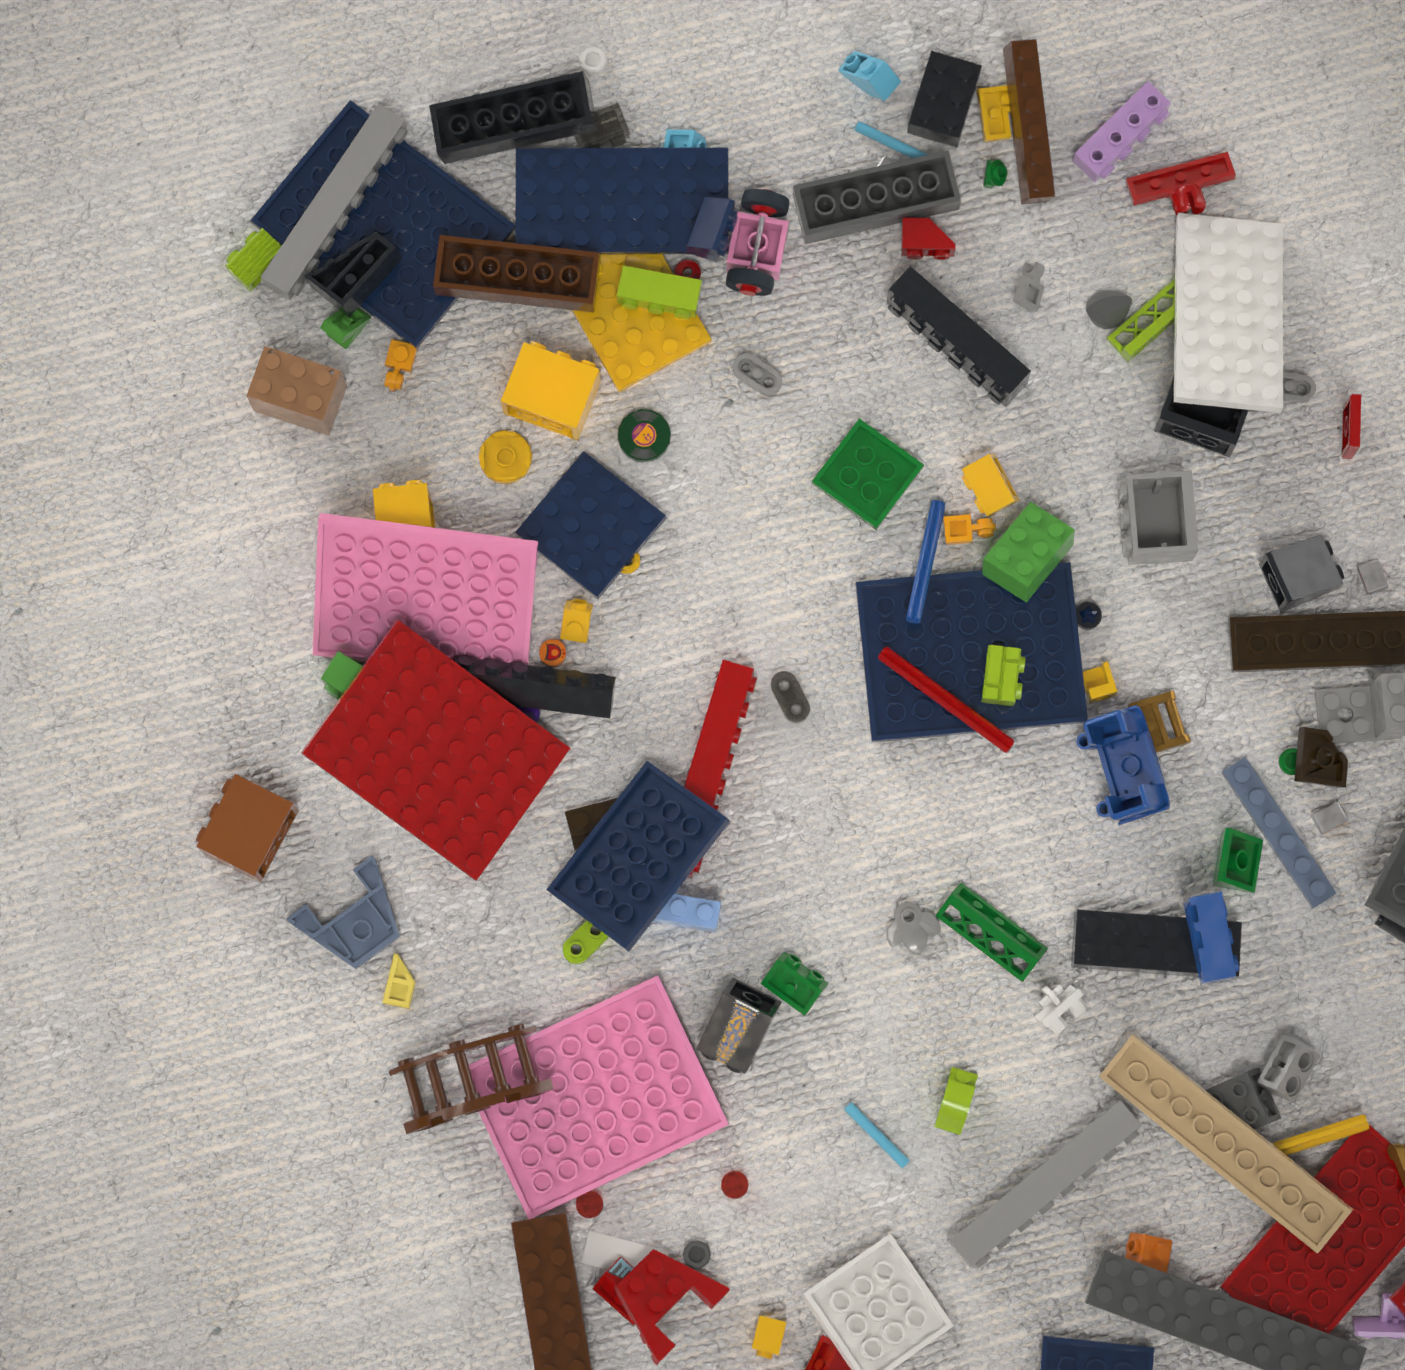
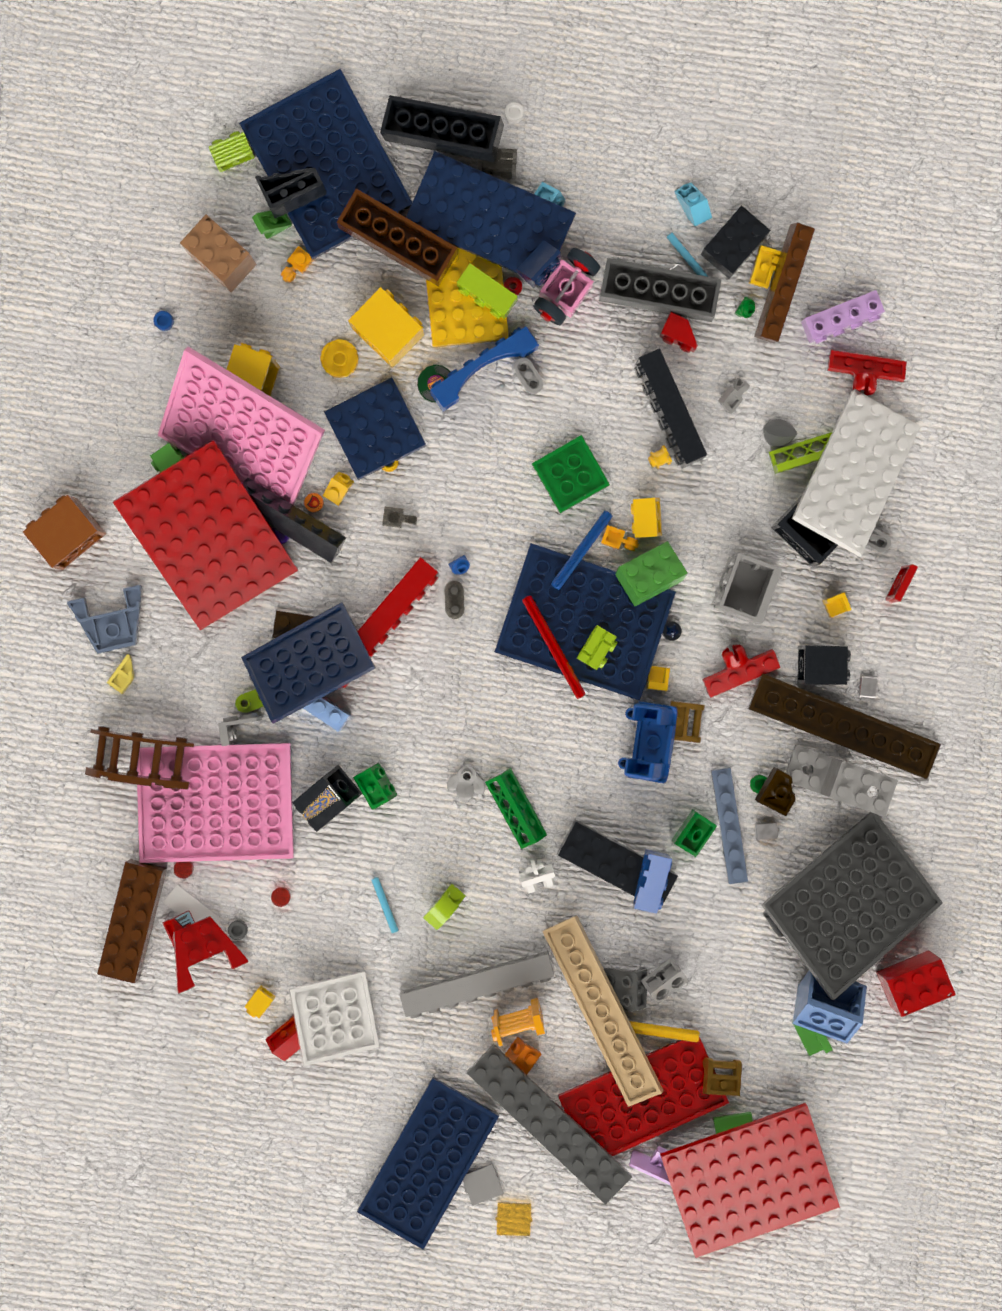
camera: 25 degrees right, 10 degrees up
(257, 507) = (163, 320): none -> blue tile
(334, 202) = (299, 134): light grey brick -> none
(574, 994) = (228, 733): none -> light grey bracket
(666, 626) = (395, 518): none -> clear smoke plate
(728, 341) = (518, 345): none -> blue arch
(777, 651) = (460, 565): none -> blue plate
(972, 404) = (659, 458): none -> yellow brick
(1140, 1182) = (517, 1022): none -> light orange fence
(1198, 626) = (739, 669): none -> red plate
(1283, 490) = (837, 604): none -> yellow panel

